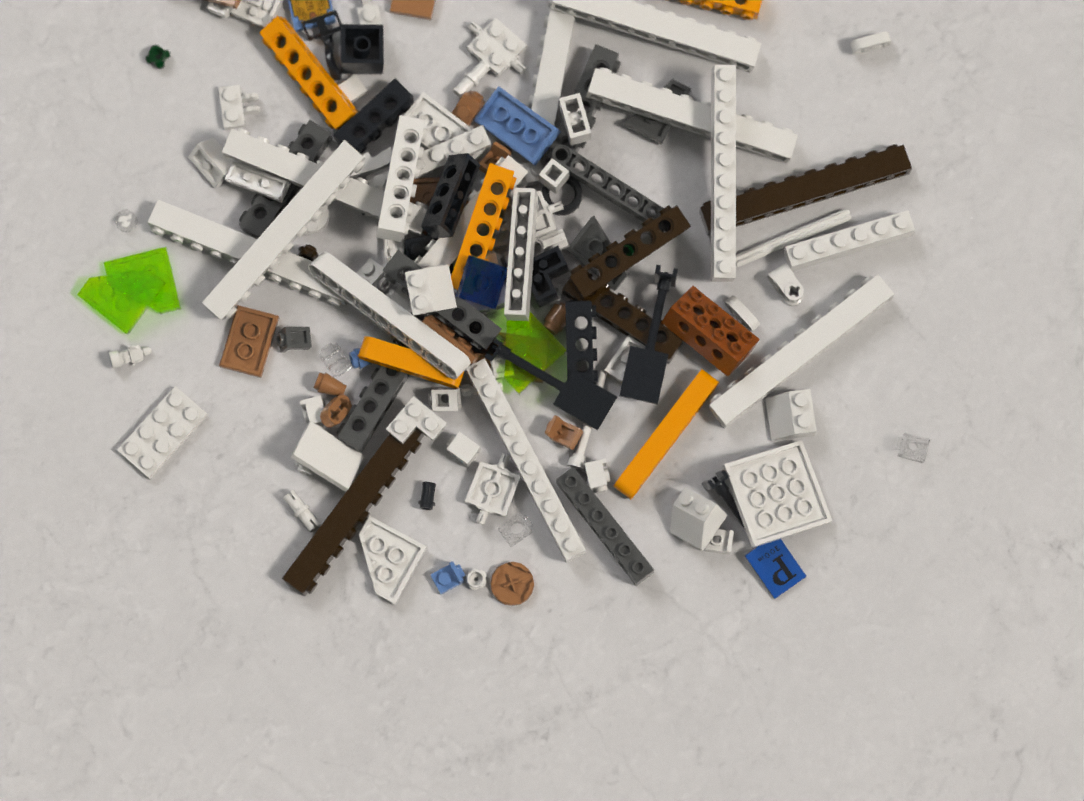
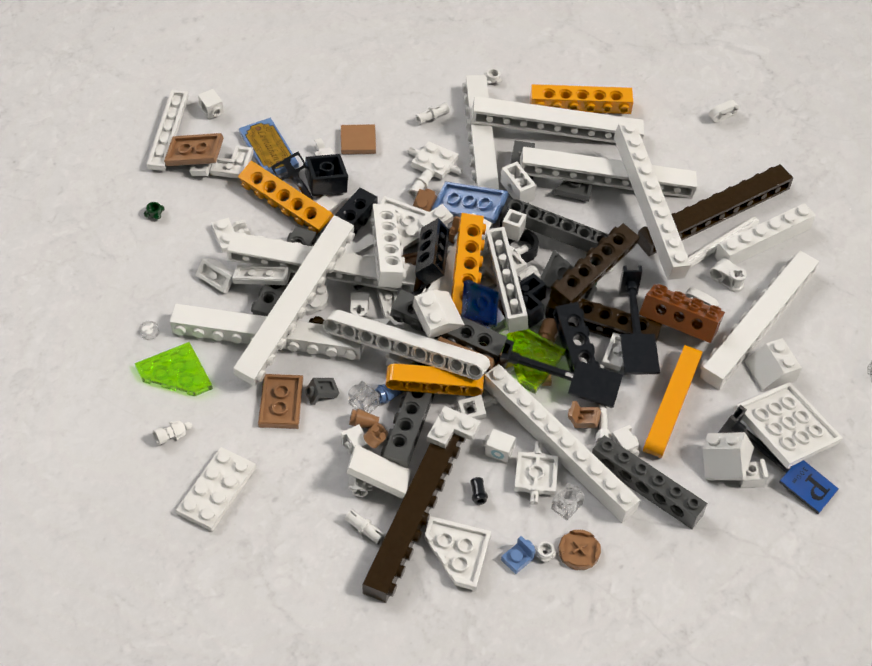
camera: 20 degrees left, 25 degrees down
(122, 296) = (157, 384): clear neon green plate -> none
(358, 238) = (360, 303): none -> white piece

